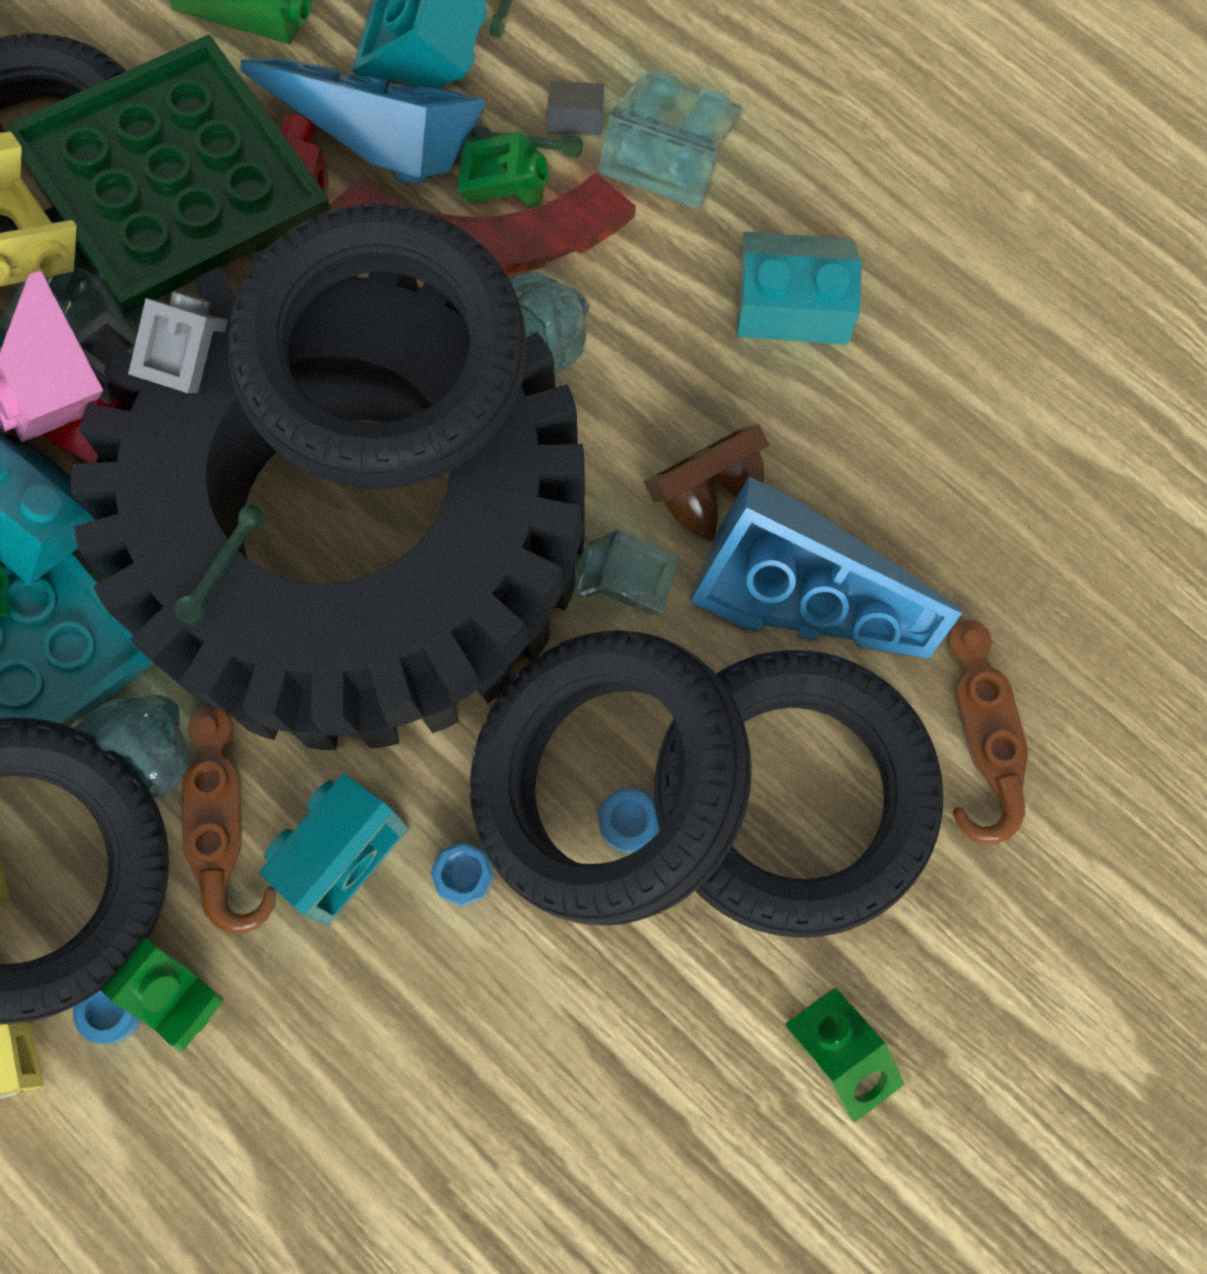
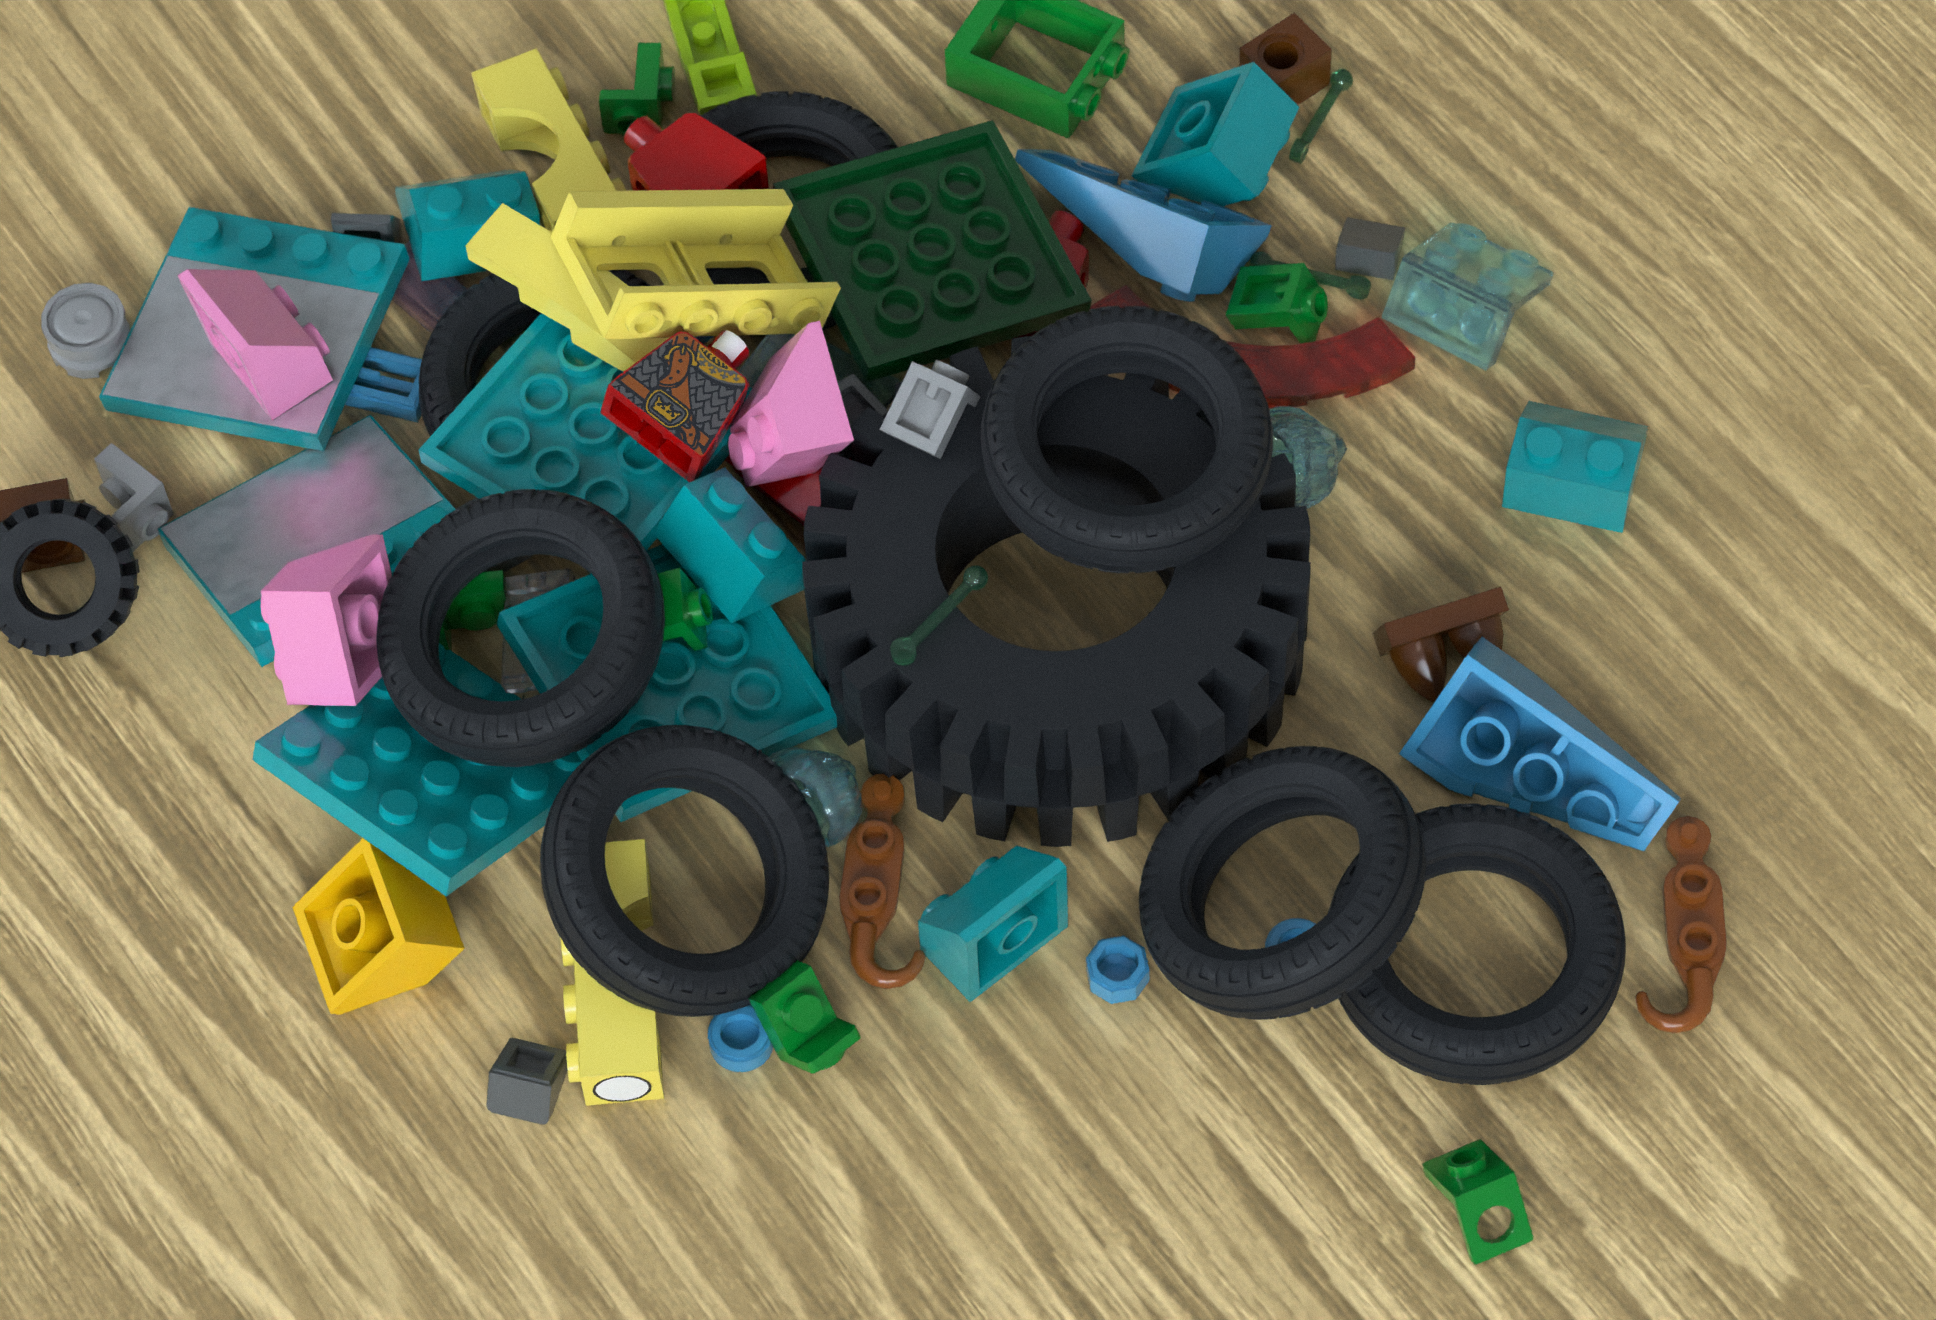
camera: 15 degrees right, 15 degrees down
(627, 571) = (1338, 712): clear light blue bracket -> none

